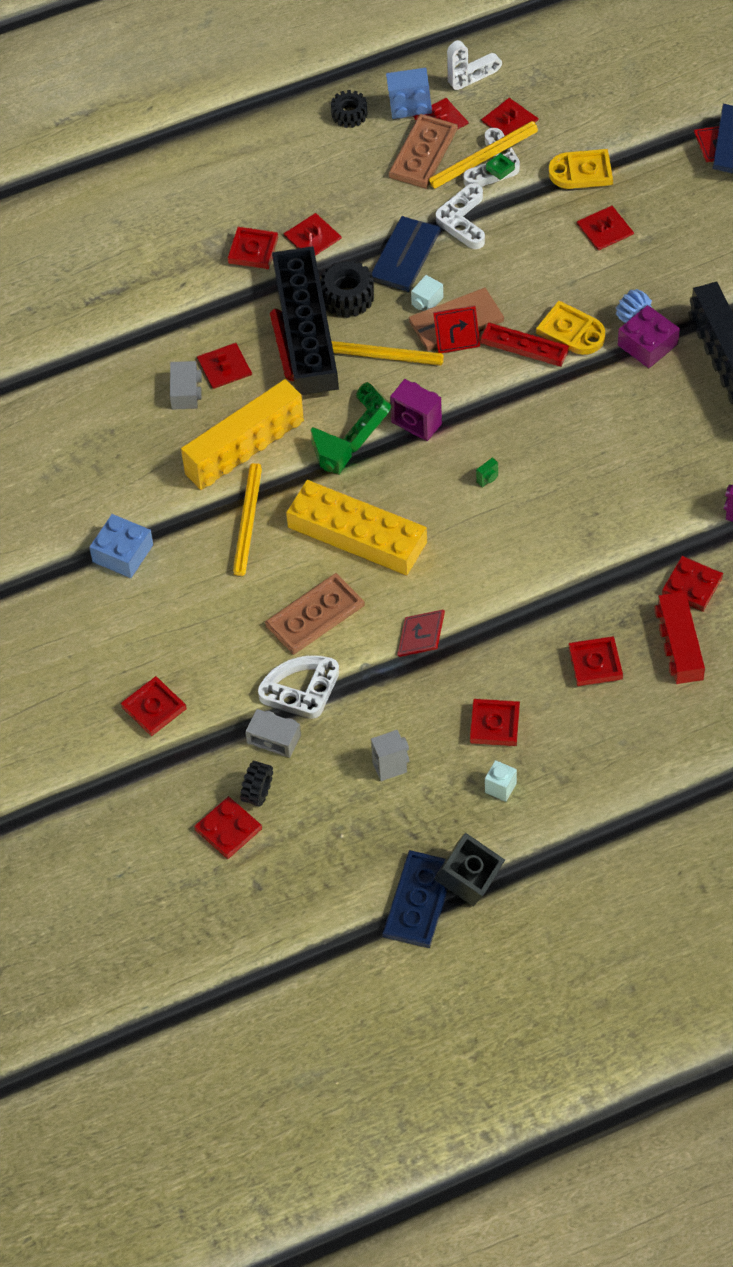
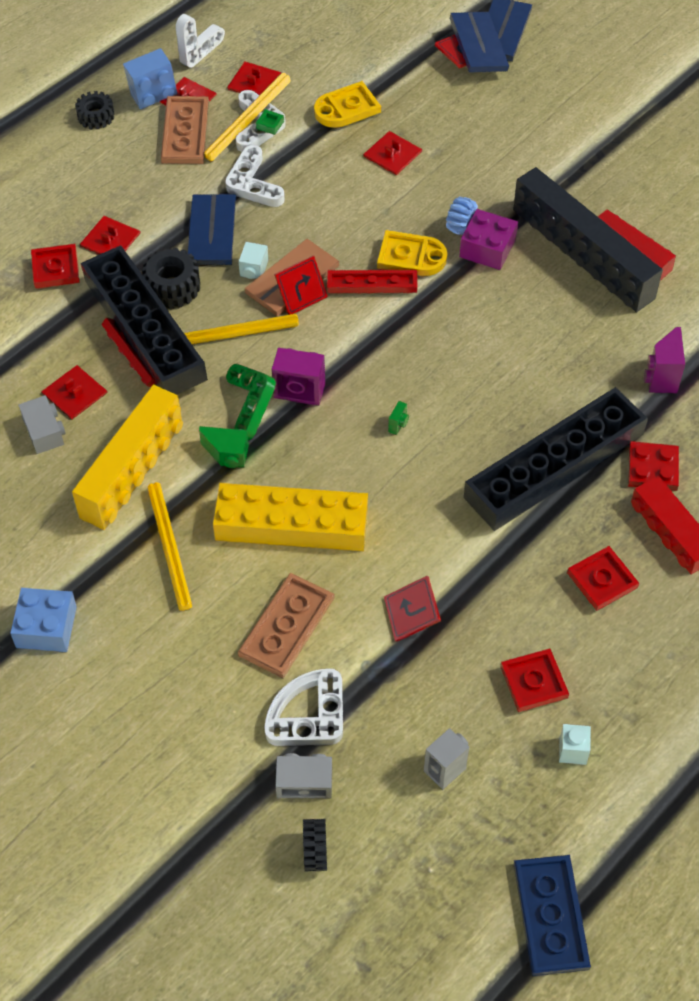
camera: 25 degrees left, 0 degrees up
(153, 706) = (155, 792): red plate -> none
(228, 827) = (301, 908): red plate -> none
(469, 869) = (596, 861): pearl dark grey brick -> none
(605, 548) = (554, 458): none -> black brick

